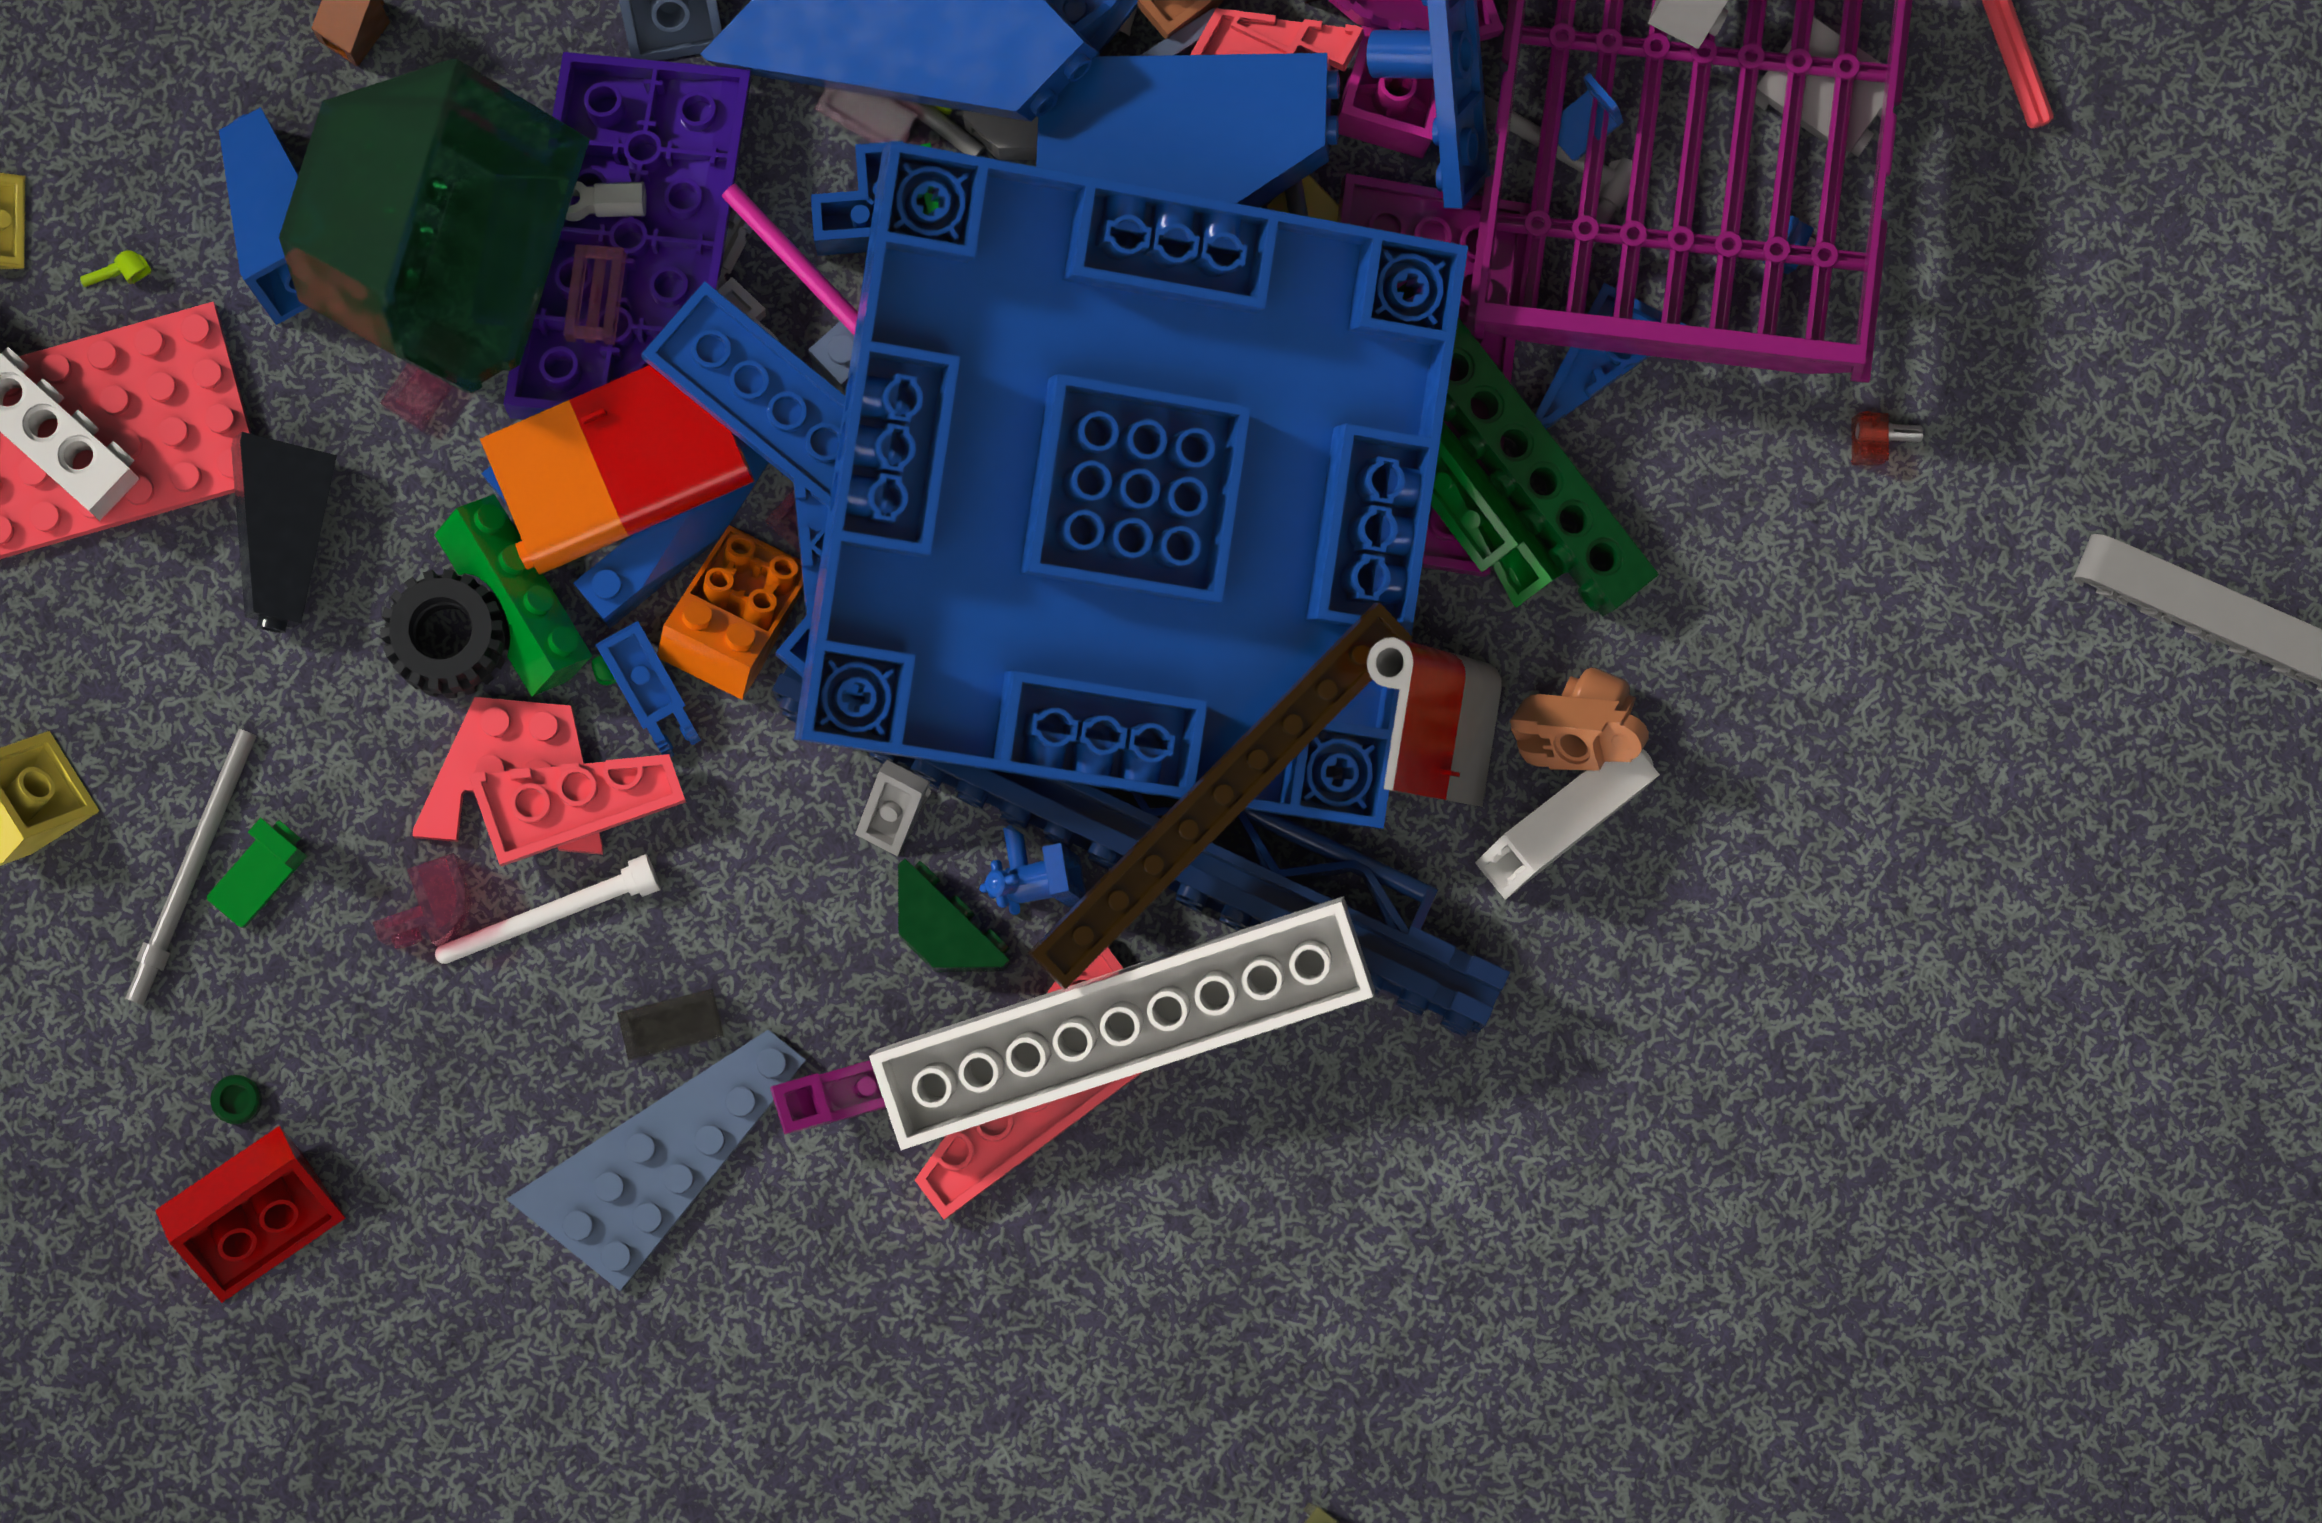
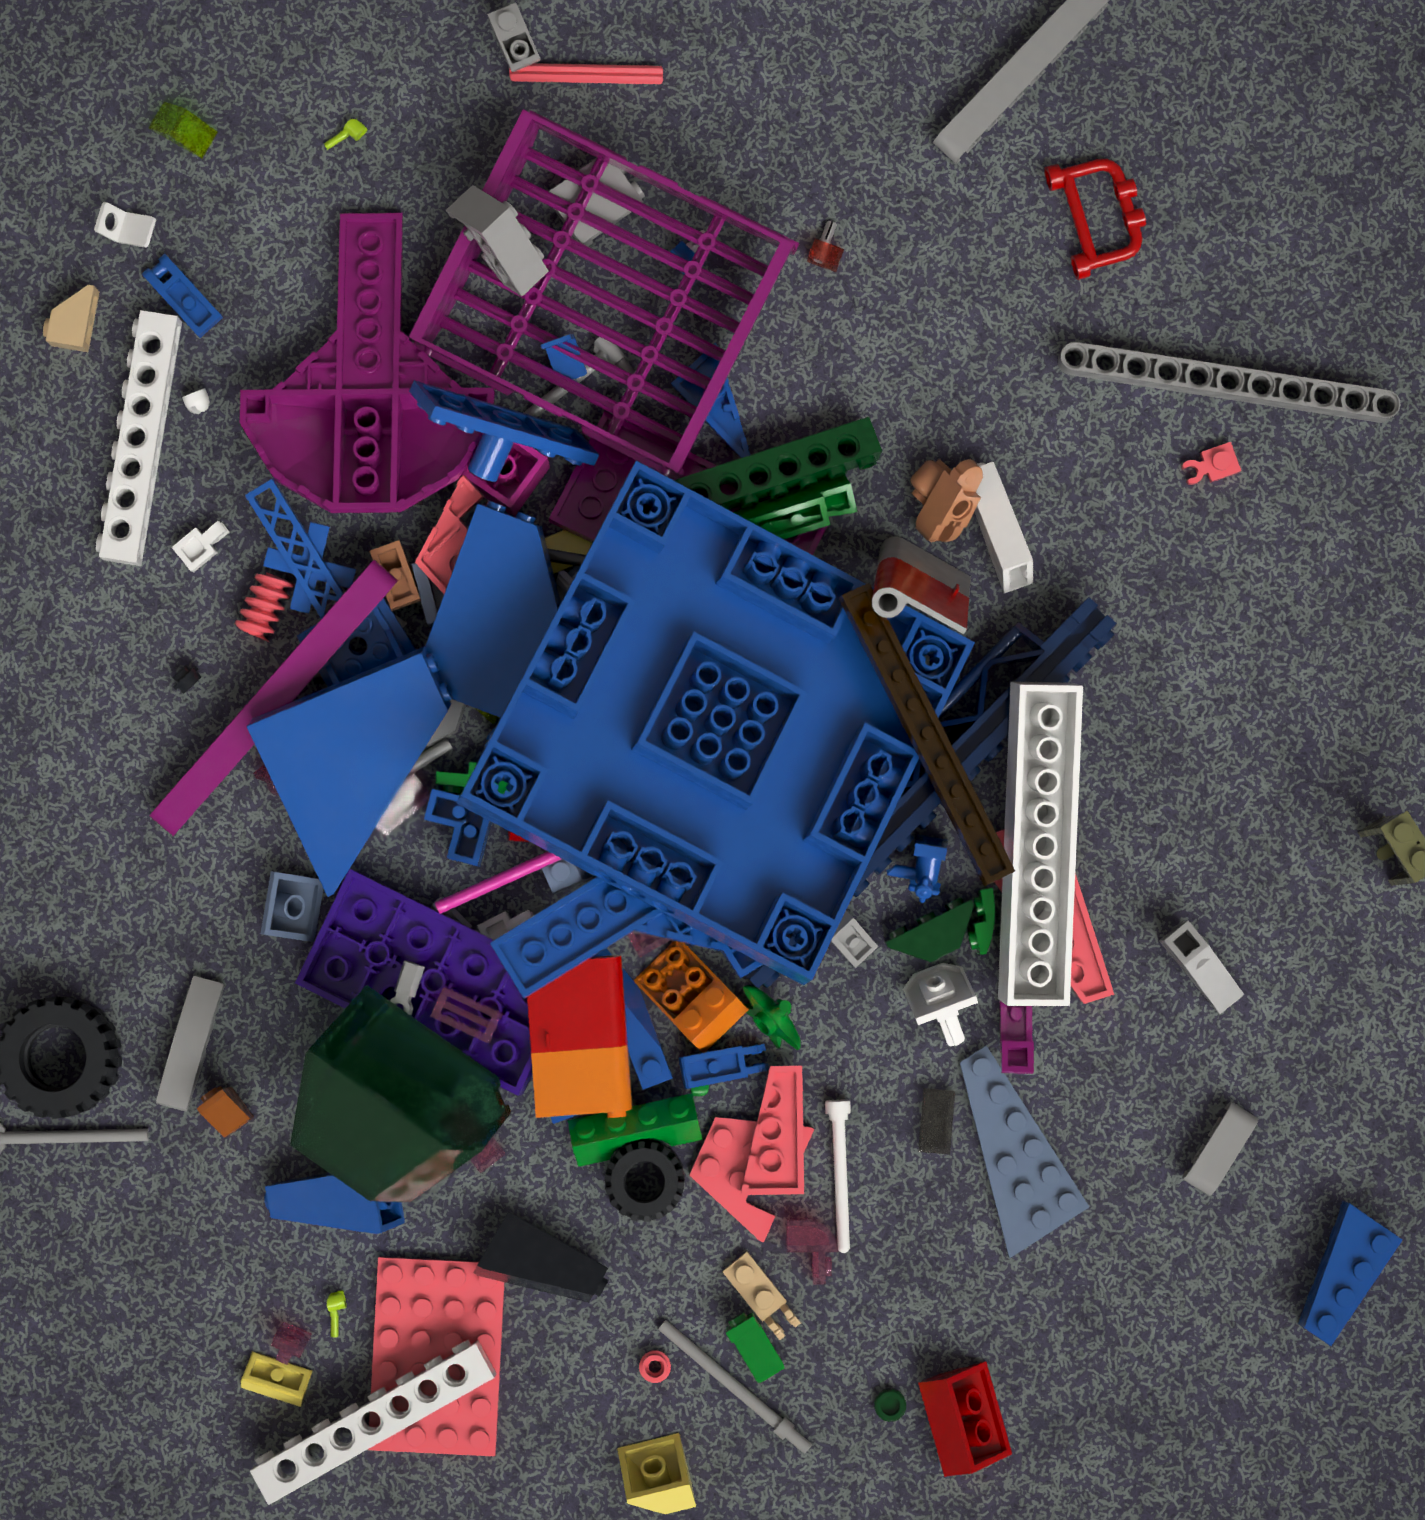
camera: 60 degrees left, 5 degrees up
(53, 220) = (290, 1342): none -> clear pink tile
(172, 732) = (647, 1374): none -> coral plate
(337, 857) = (759, 1292): none -> tan hinge
(740, 732) = (772, 1017): none -> green animal
(769, 1455) = (1221, 1150): none -> light grey beam
(854, 963) = (939, 995): none -> white piece
(969, 996) = (982, 932): none -> green slope
(1028, 1336) = (1202, 966): none -> light grey slope
(1779, 1106) = (1216, 463): none -> coral plate
(1895, 1104) = (1243, 382): none -> light grey beam
(2092, 860) = (1124, 191): none -> red bar

